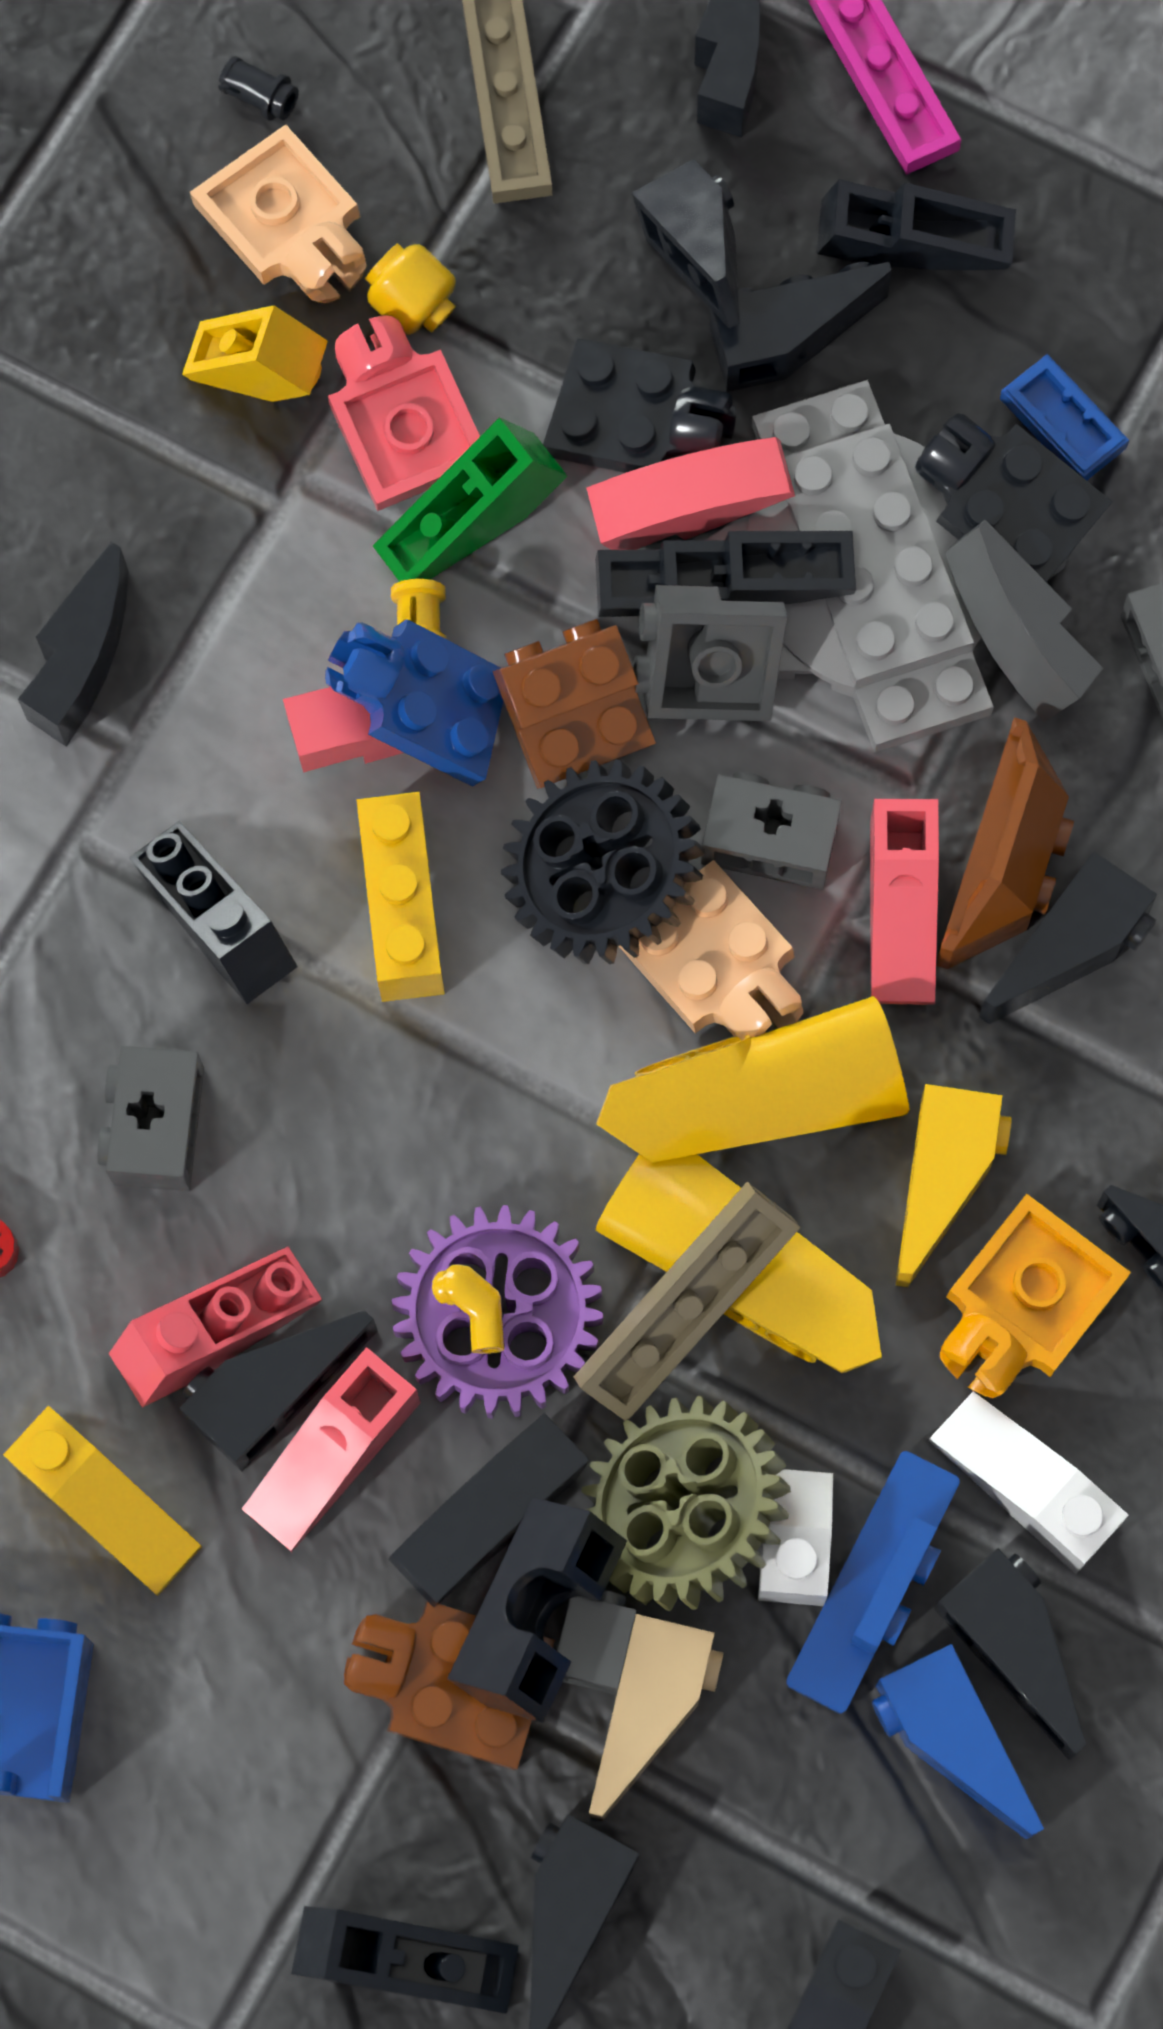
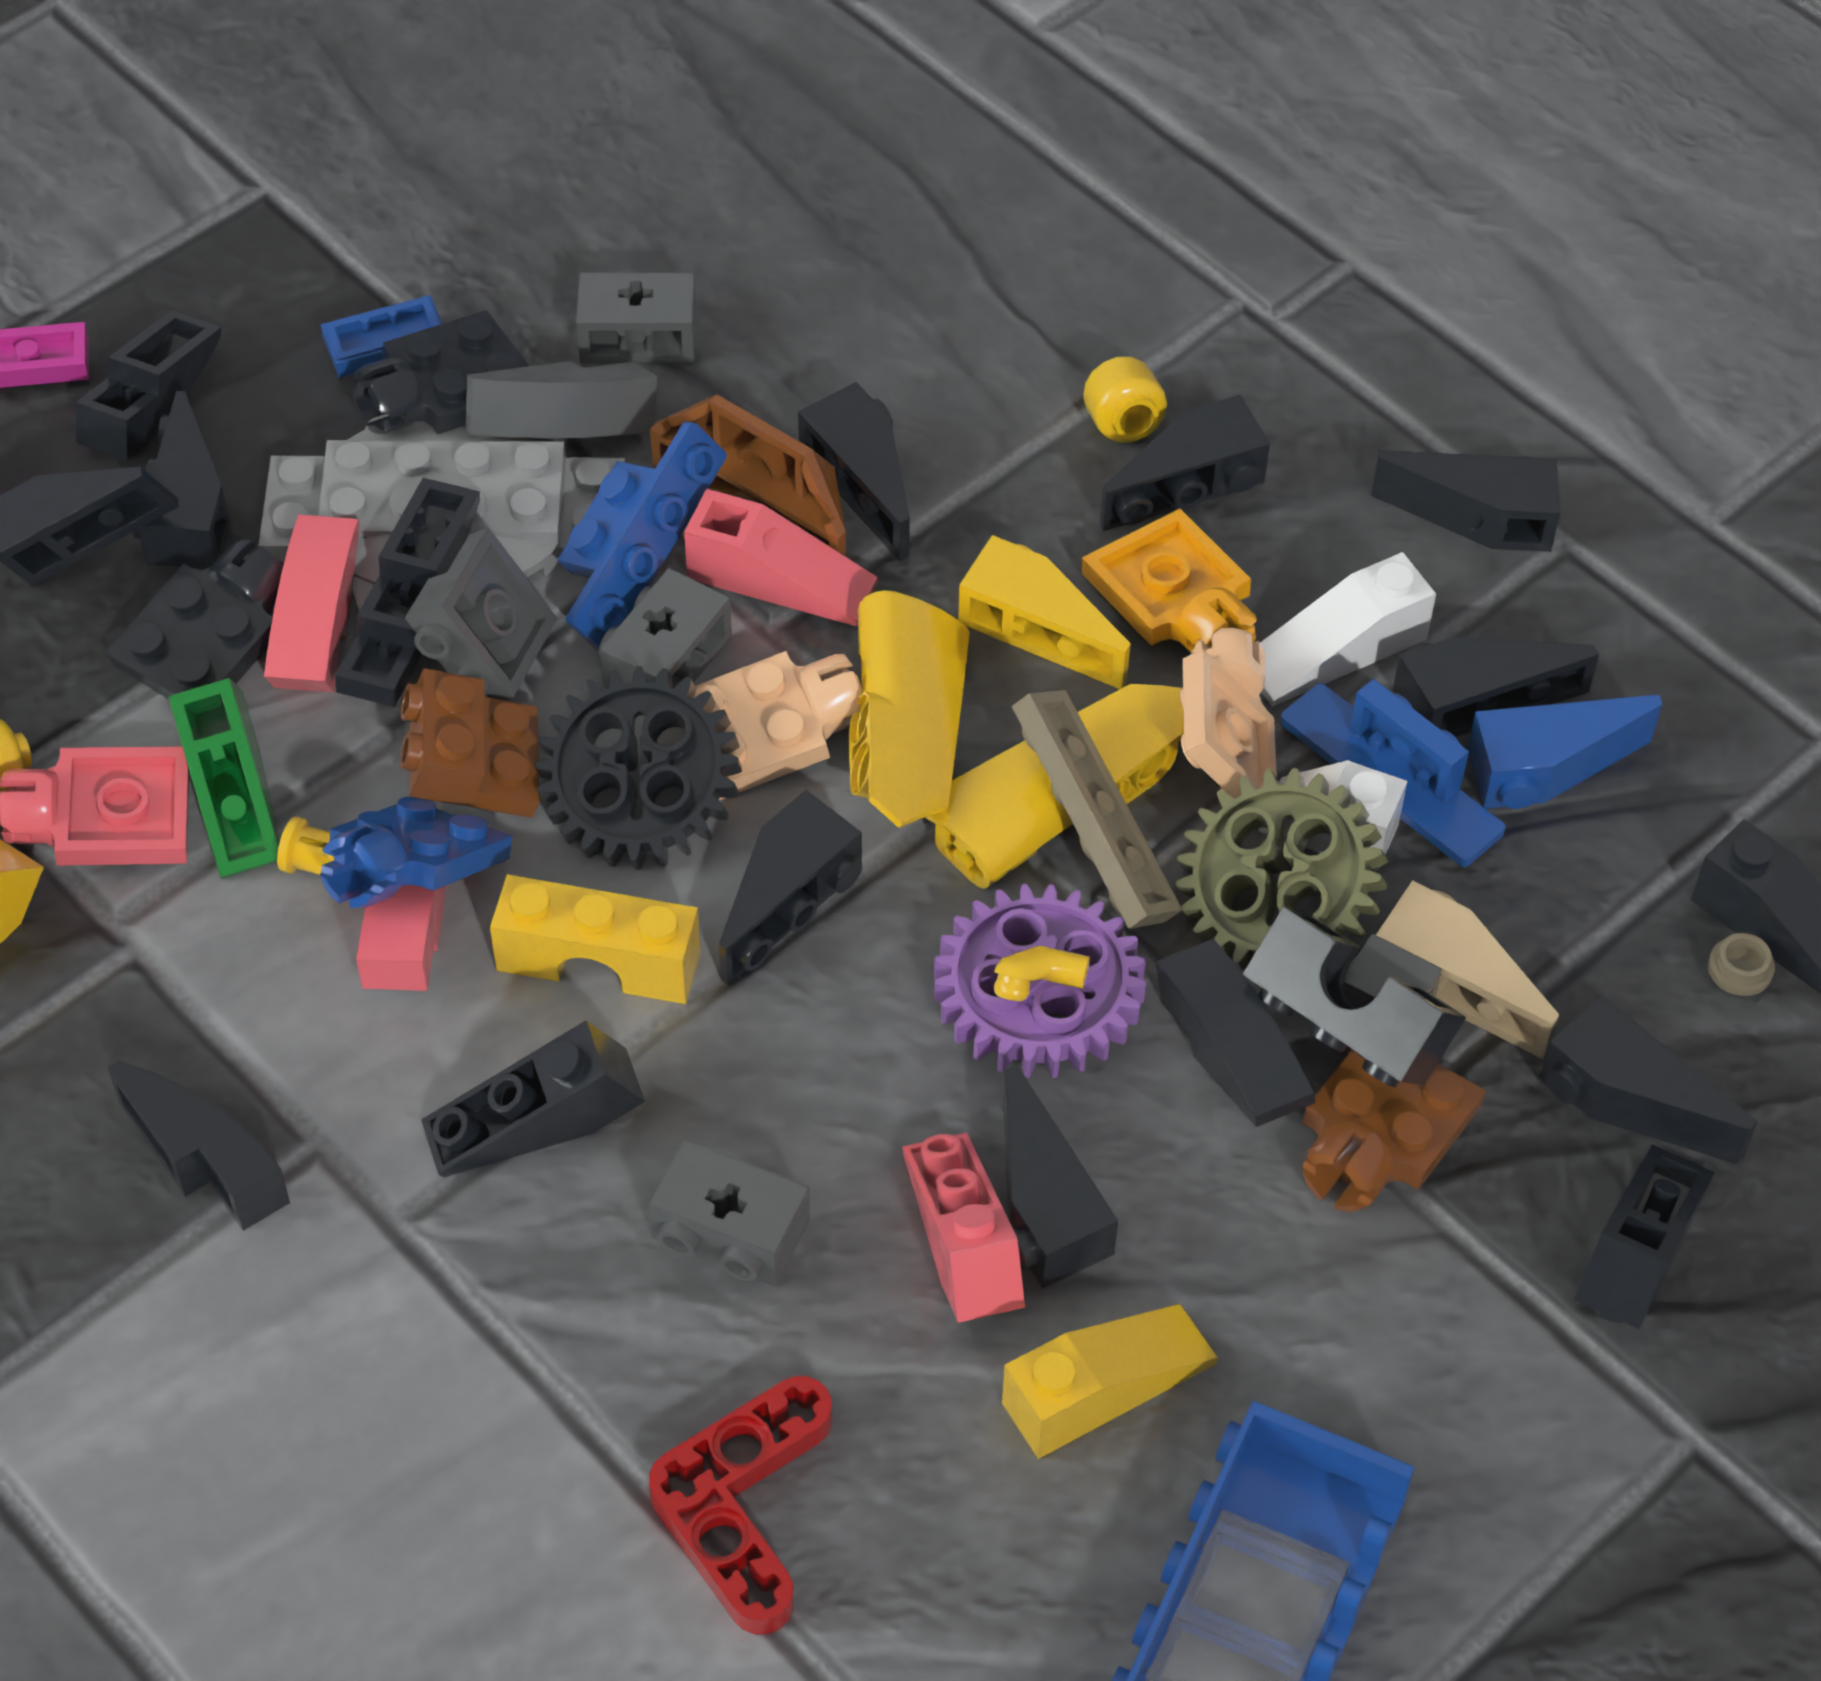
camera: 75 degrees left, 20 degrees down
(332, 1448) = (1126, 1143): slope -> none
(536, 1040) = (793, 869): none -> black slope
(757, 1990) = (1741, 964): none -> dark tan plate
(853, 1399) = (1223, 714): none -> light nougat plate
(876, 750) = (635, 528): none -> blue bracket

